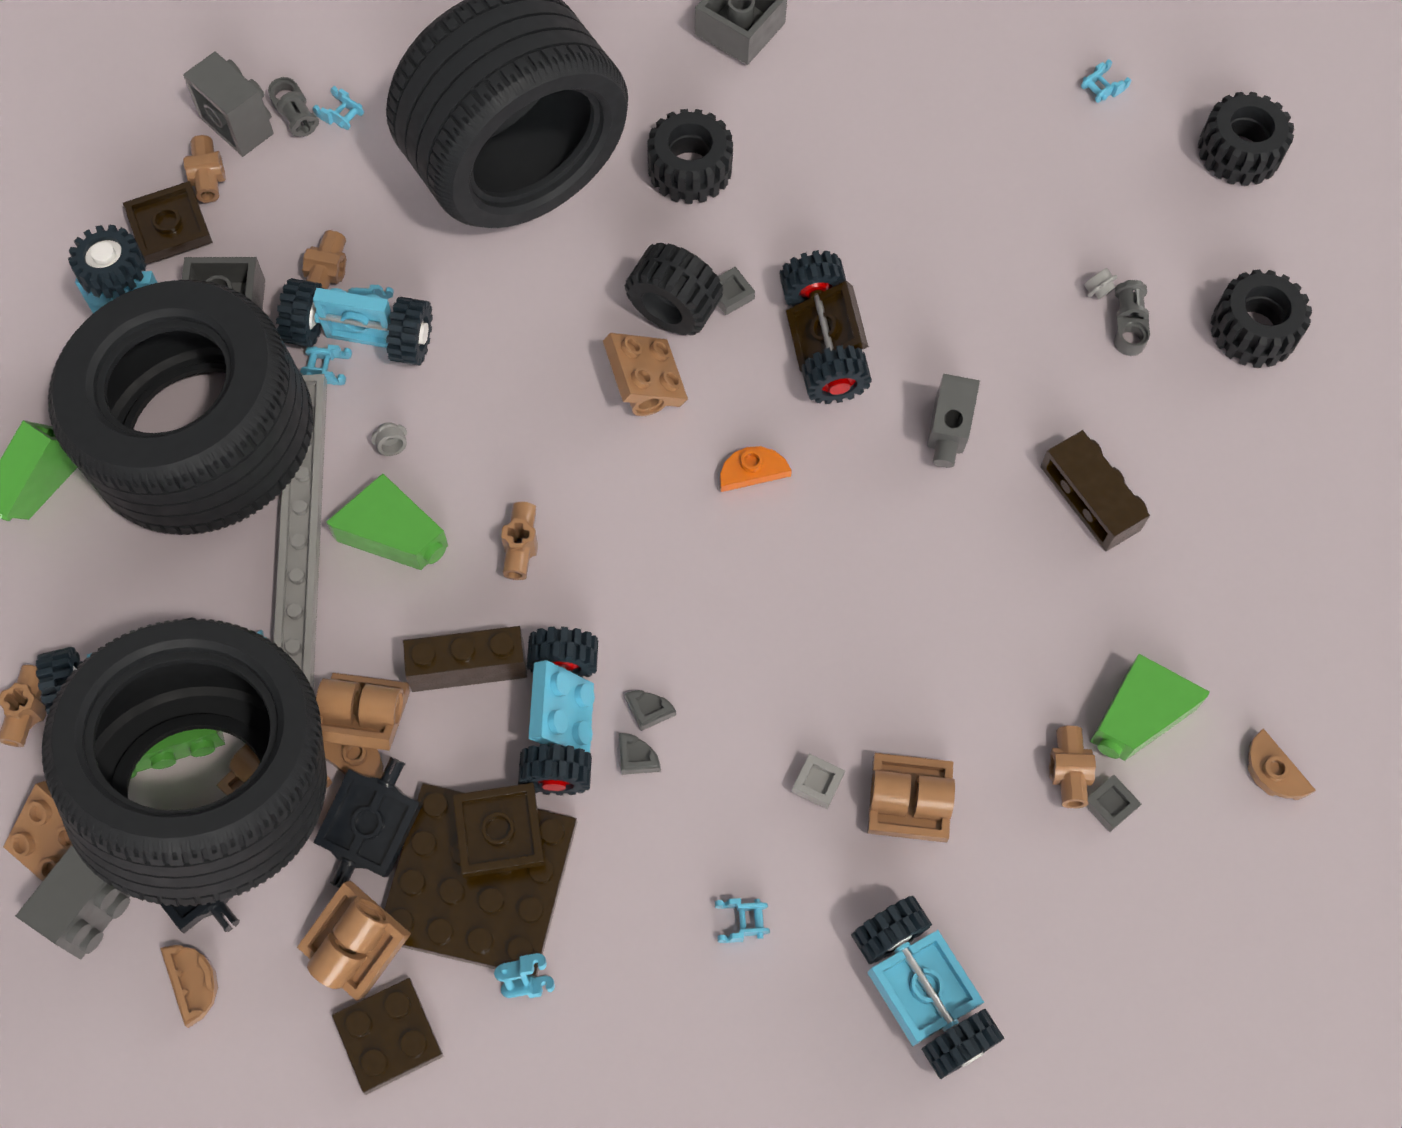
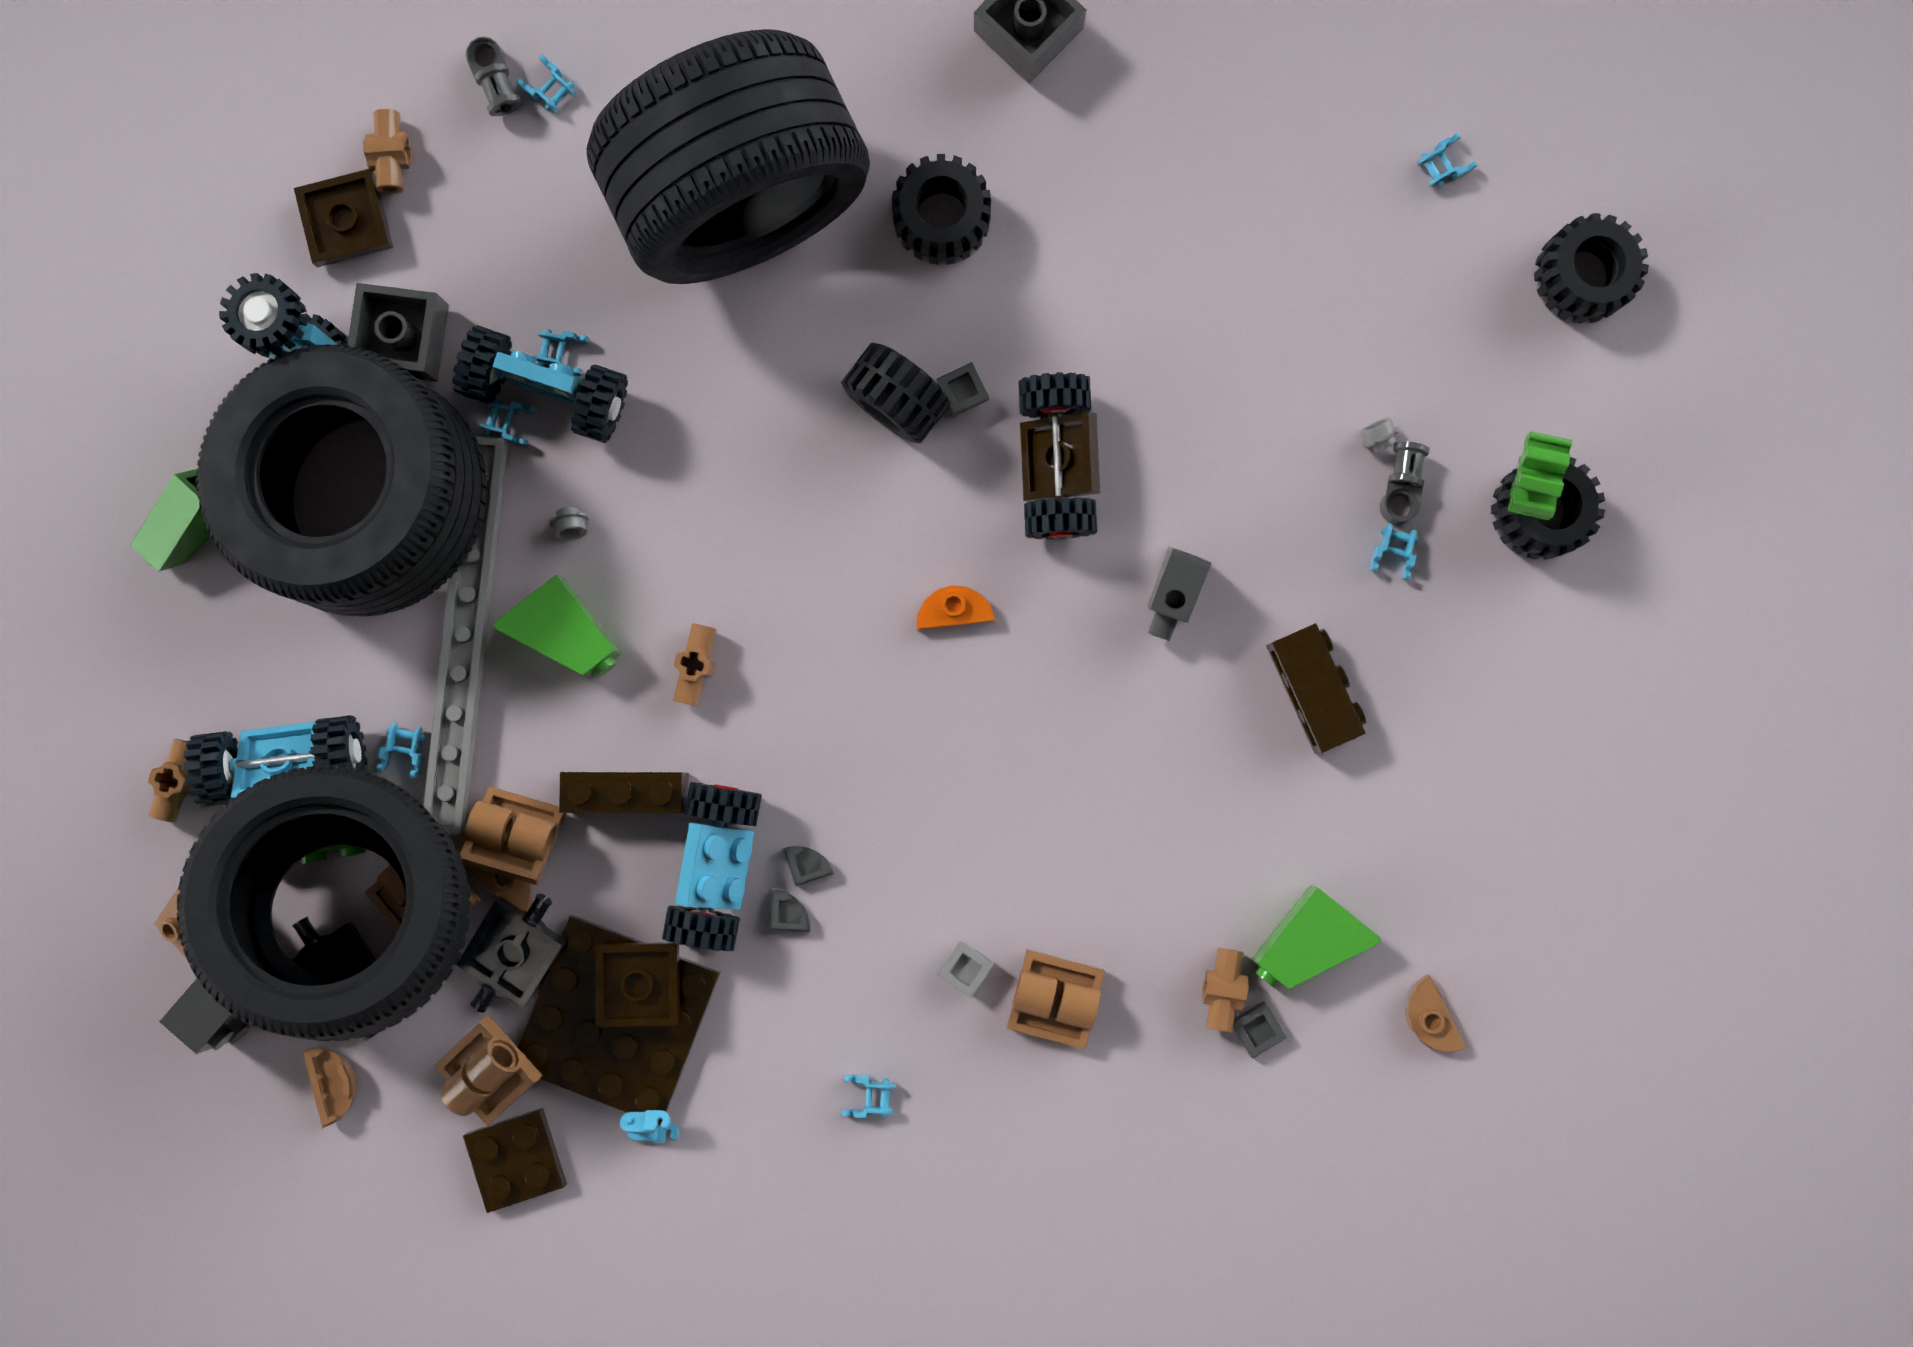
camera: 10 degrees right, 20 degrees up
(229, 103) = (419, 72): dark grey brick -> none
(327, 262) = (514, 296): medium nougat axle -> none
(645, 372) = (852, 483): medium nougat plate -> none
(926, 987) = (1034, 1197): plate -> none
(1150, 376) = (1407, 553): none -> medium azure piece
(1249, 273) = (1540, 475): none -> bright green gear

